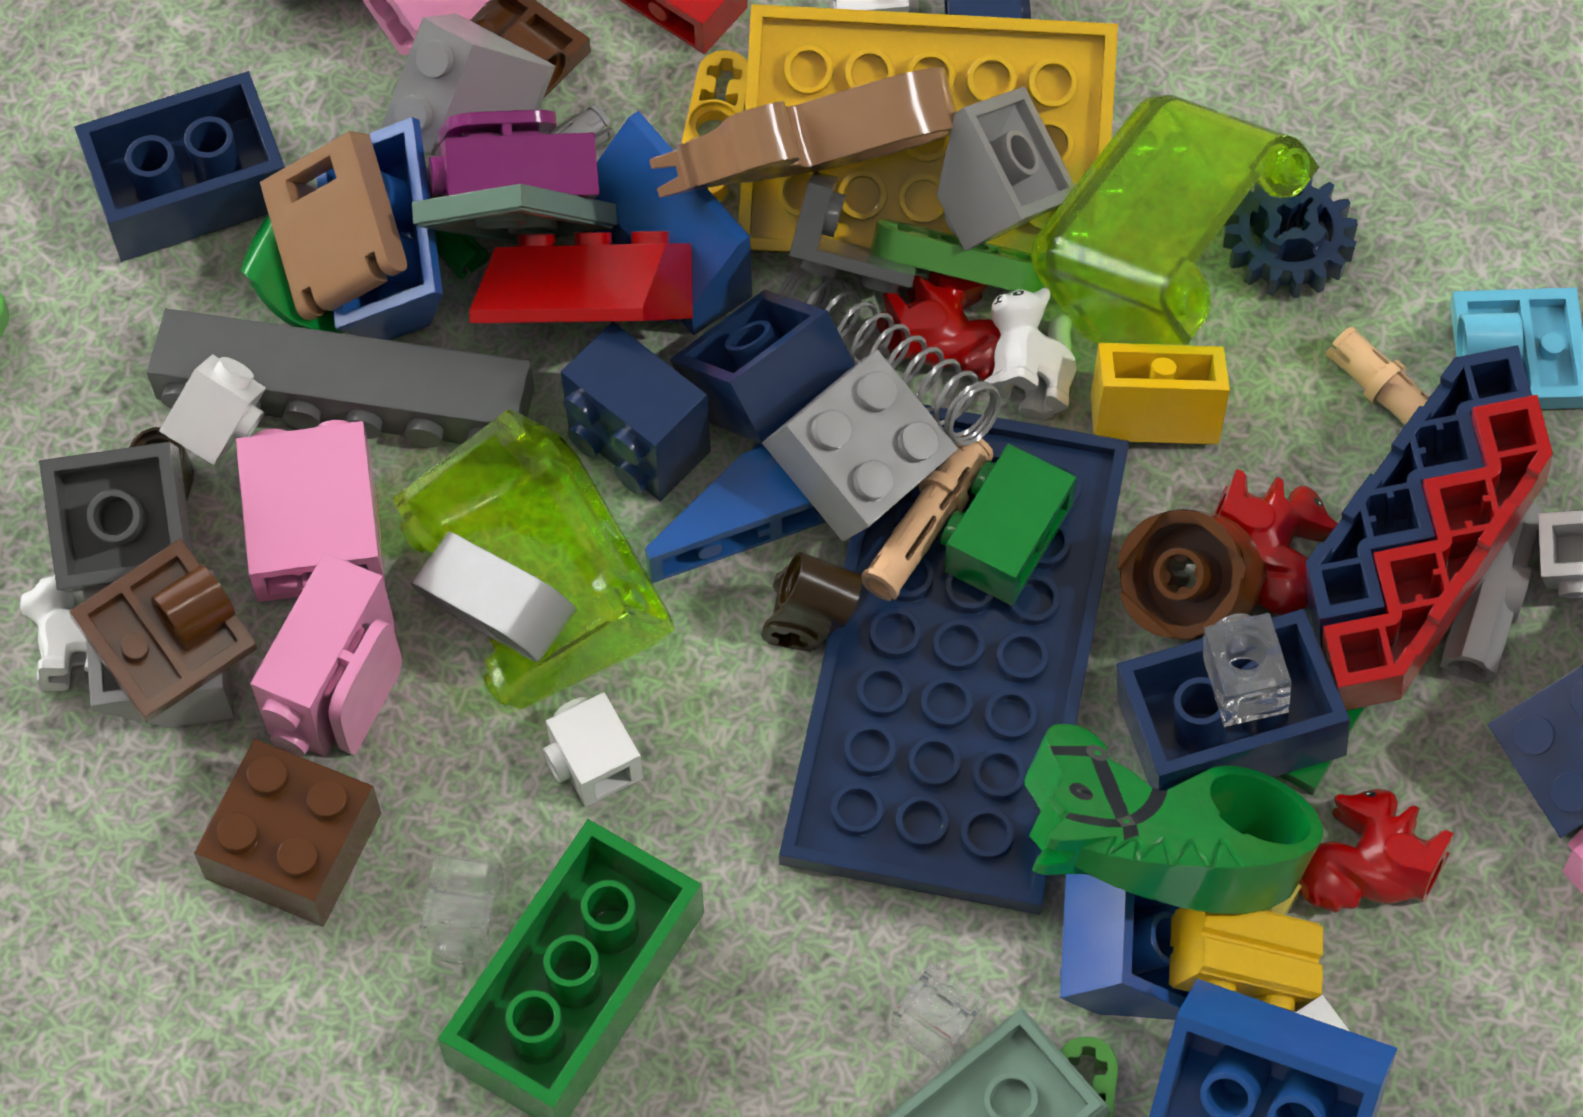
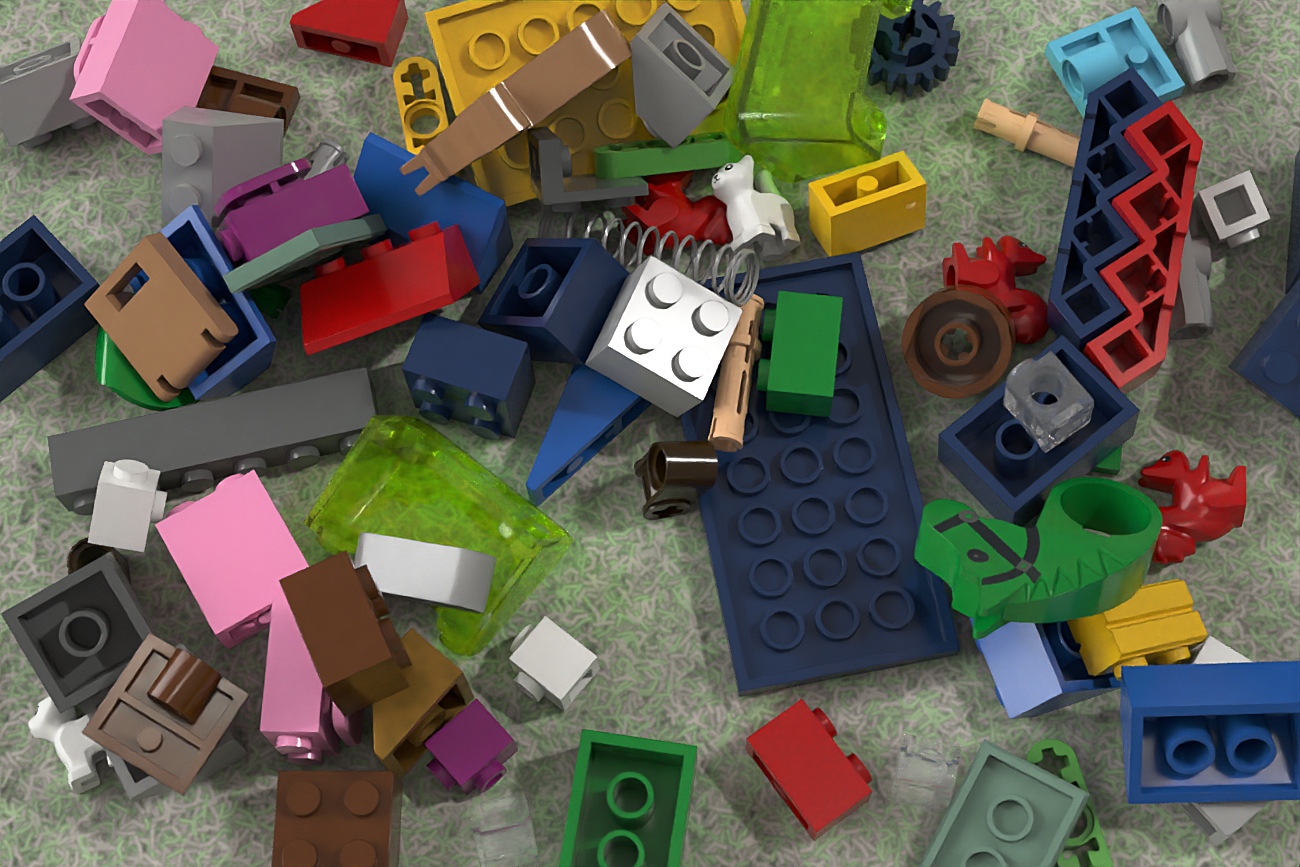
camera: 20 degrees left, 5 degrees up
(378, 611) = (343, 632): none -> reddish brown brick
(424, 725) = (417, 713): none -> pearl gold slope
(465, 803) = (470, 750): none -> magenta brick
(818, 965) = (810, 768): none -> red brick

